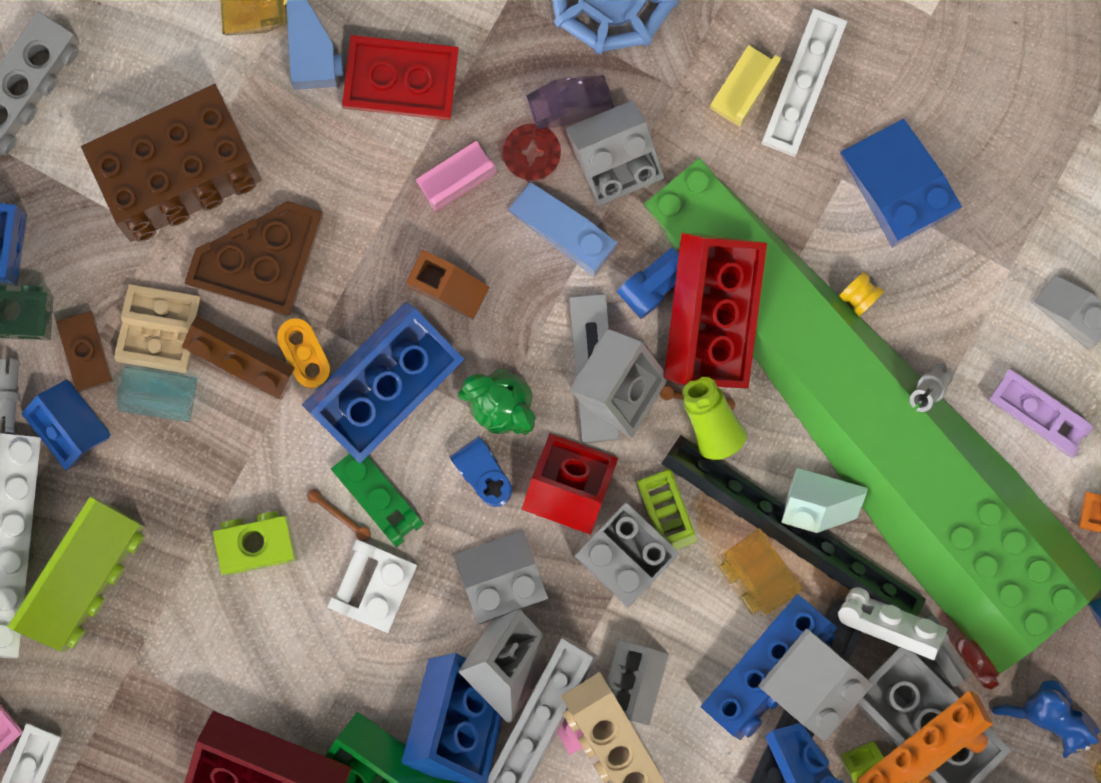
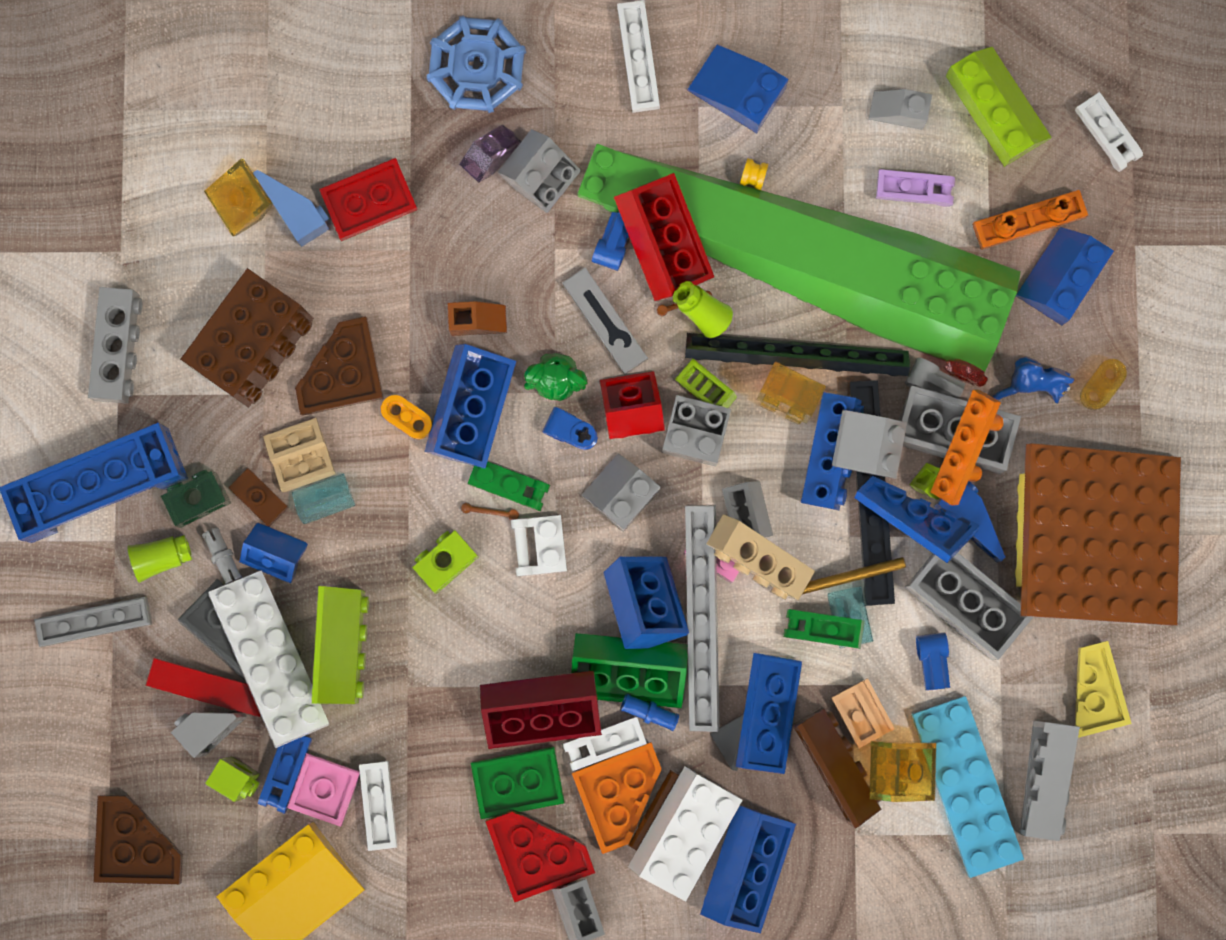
camera: 25 degrees left, 0 degrees up
(237, 357) = (363, 443): reddish brown plate -> none
(456, 176) = (442, 244): bright pink panel -> none
(506, 663) = (657, 544): light grey slope -> none
(520, 140) = (490, 190): clear red gear -> none
(564, 228) = (533, 239): medium blue slope -> none
(619, 382) = (627, 318): light grey slope -> none
(744, 85) = (600, 79): light yellow panel -> none
(821, 501) = (804, 324): light aqua slope -> none
(891, 624) = (896, 377): white plate -> none
(931, 387) = (835, 209): light grey pin -> none

